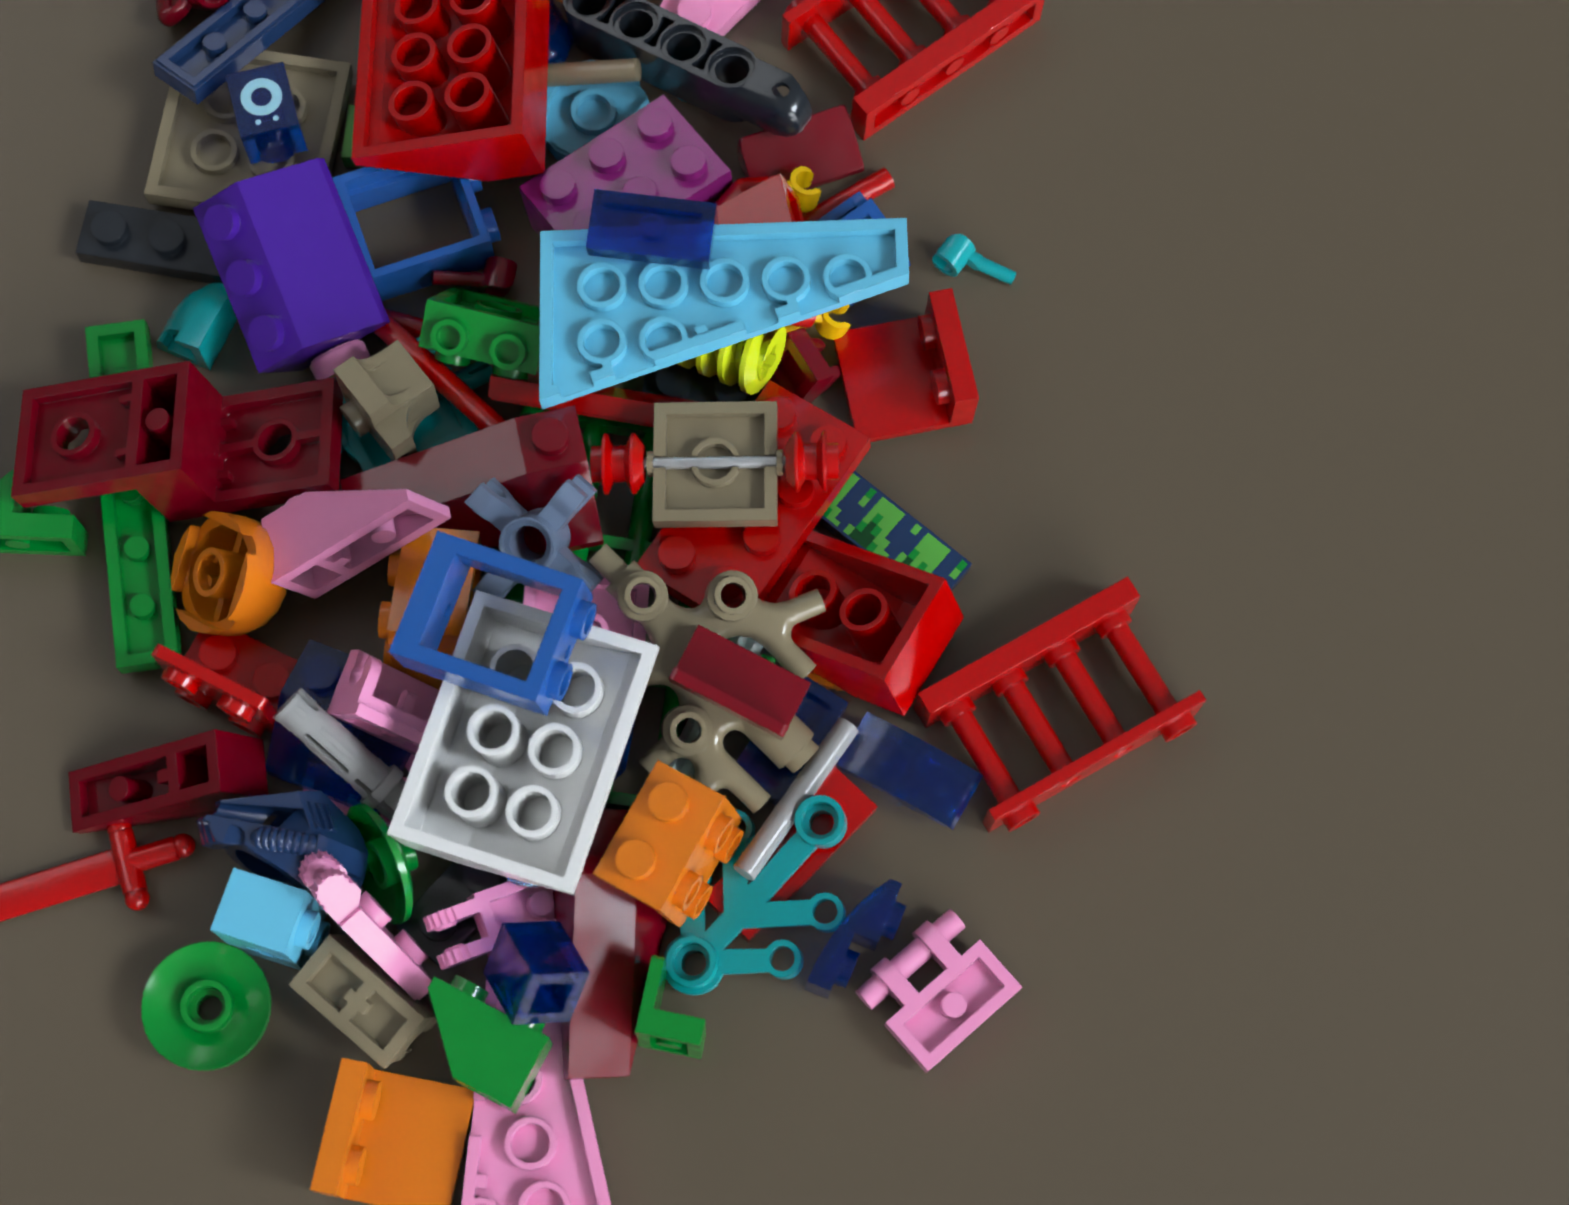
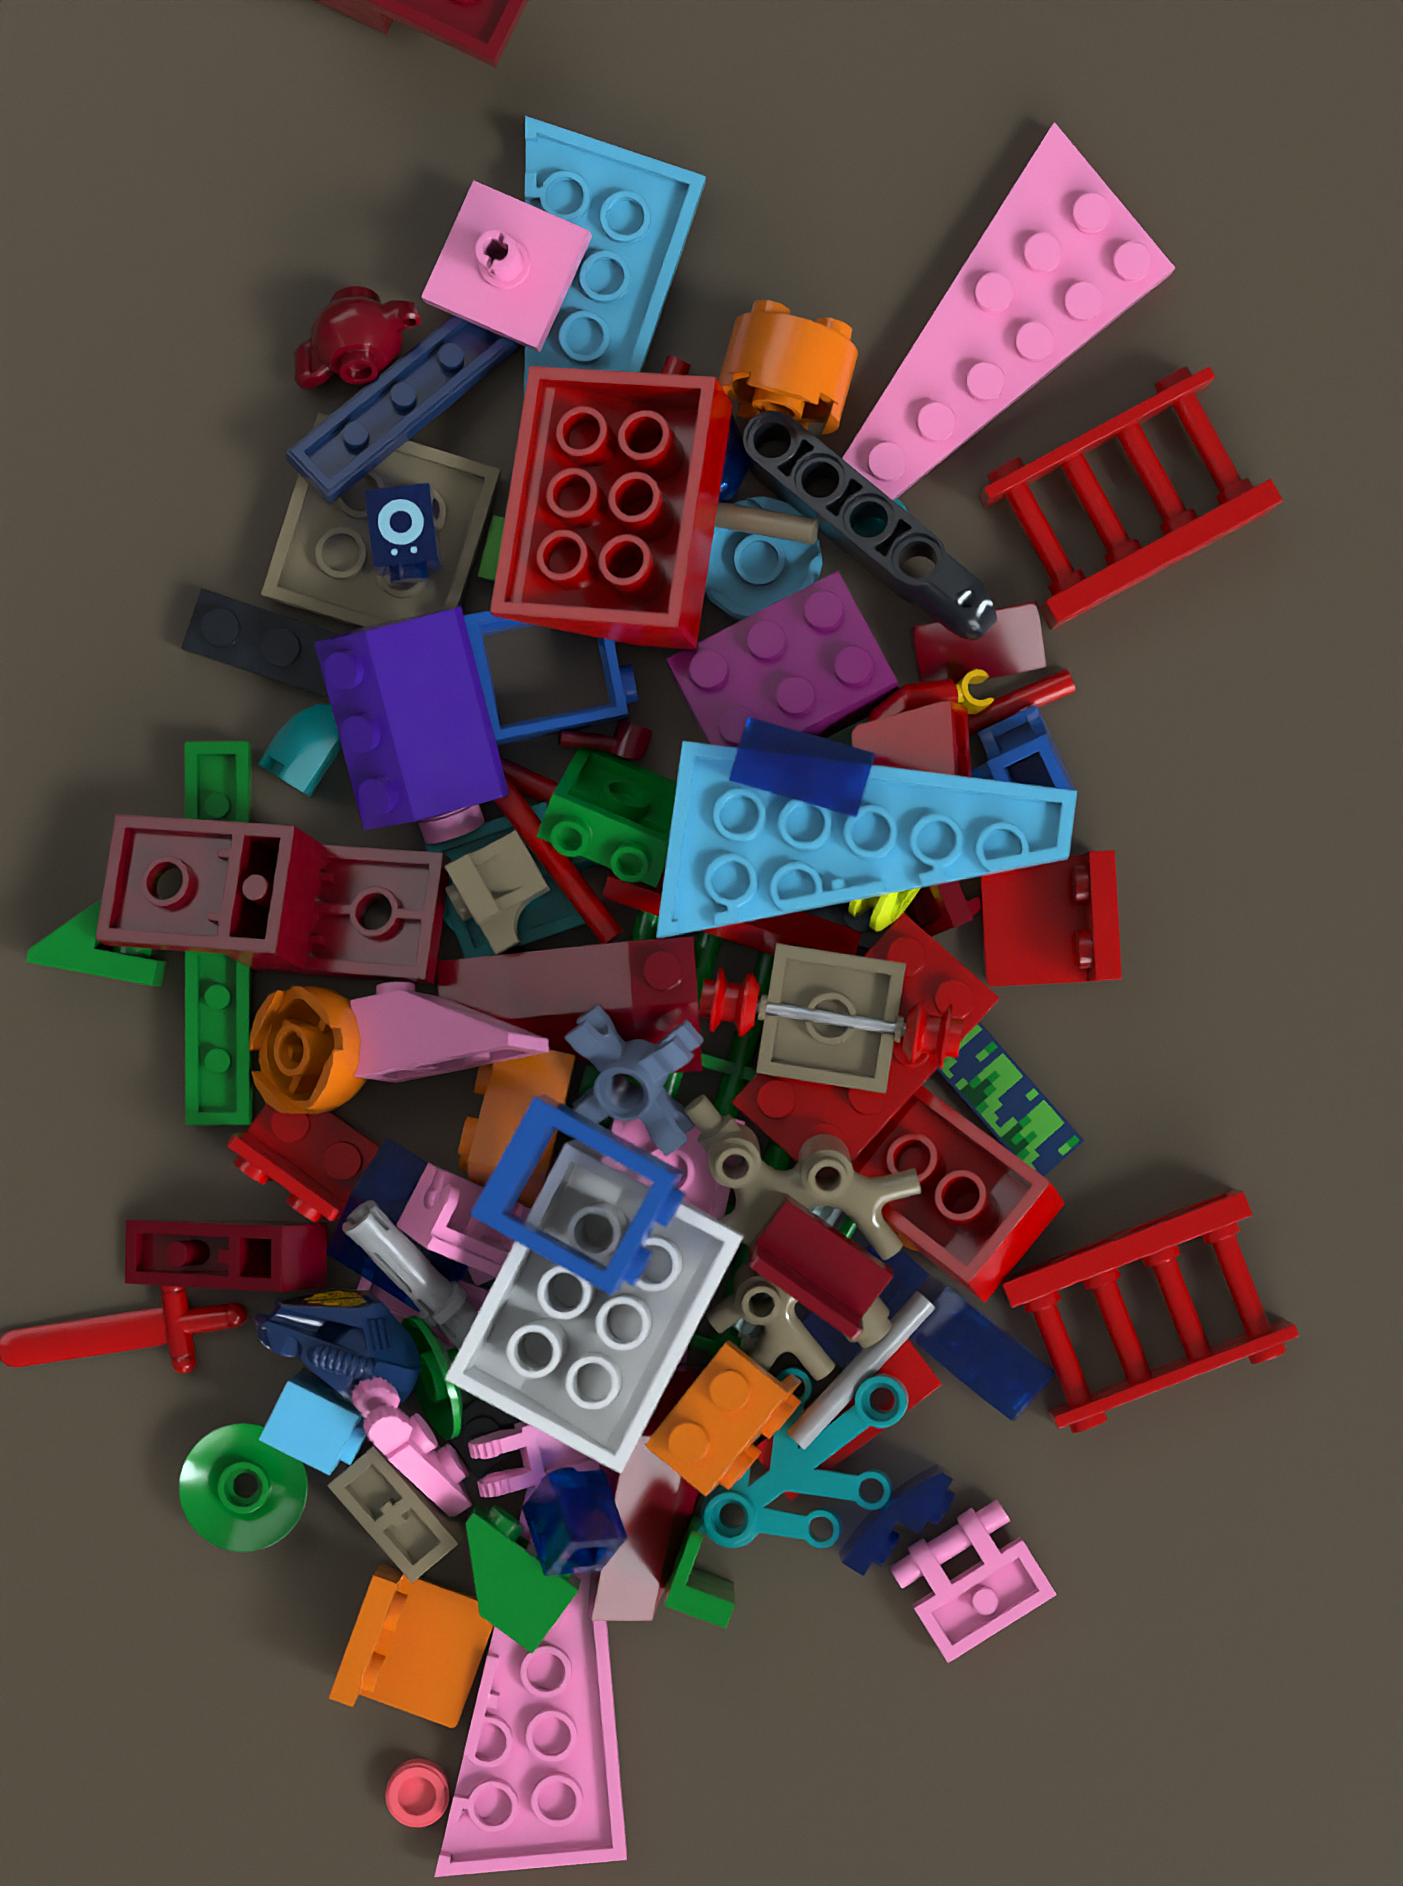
camera: 10 degrees right, 15 degrees up
(960, 251) = (1129, 784): teal hand -> none

